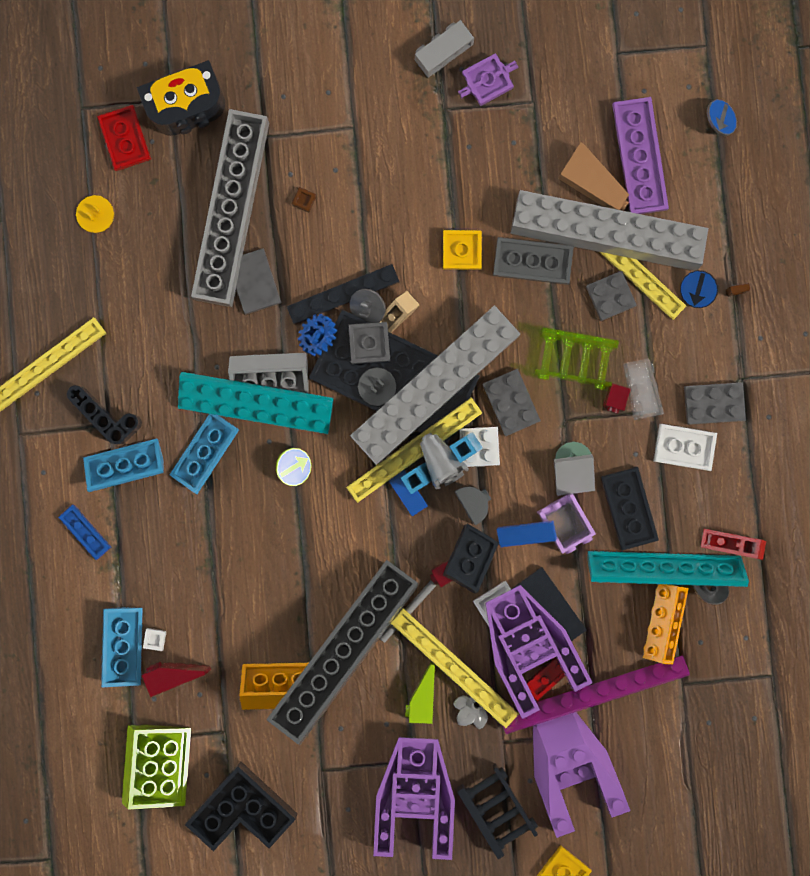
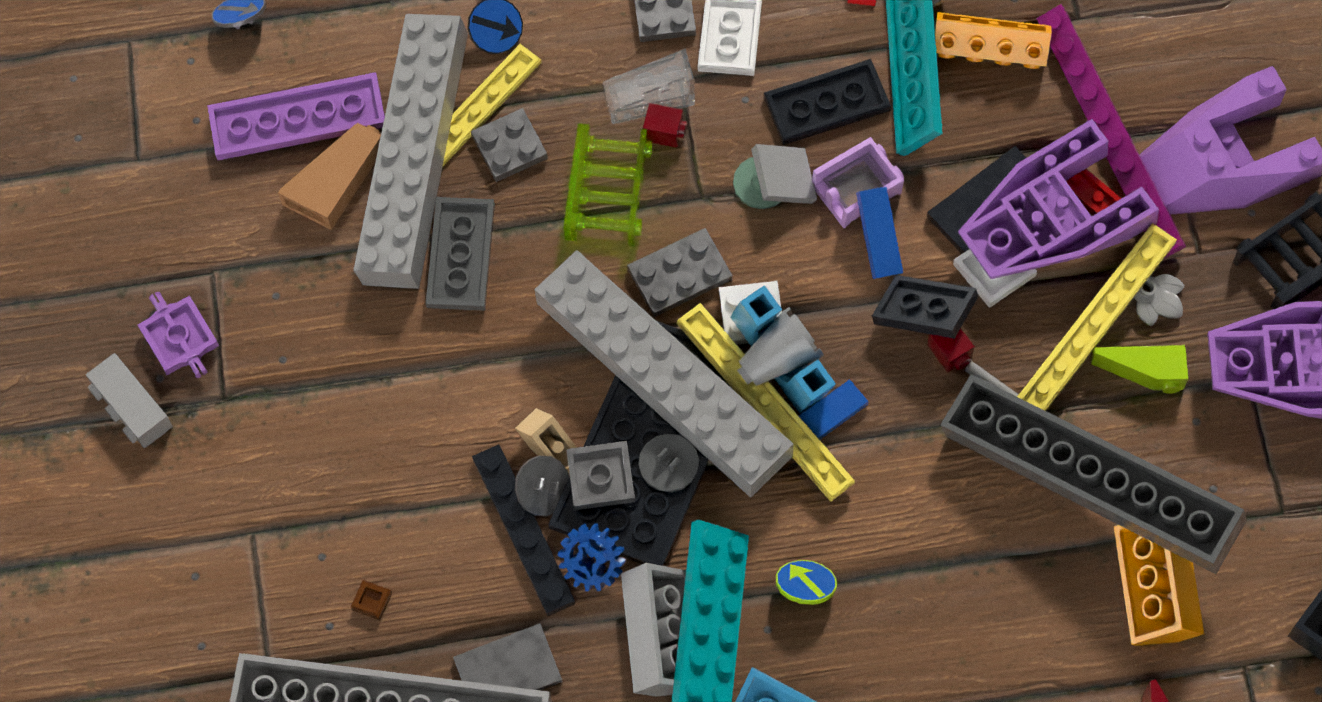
camera: 90 degrees left, 20 degrees down
(462, 250) = (446, 355): yellow plate -> none
(474, 502) = (841, 307): dark grey brick -> none

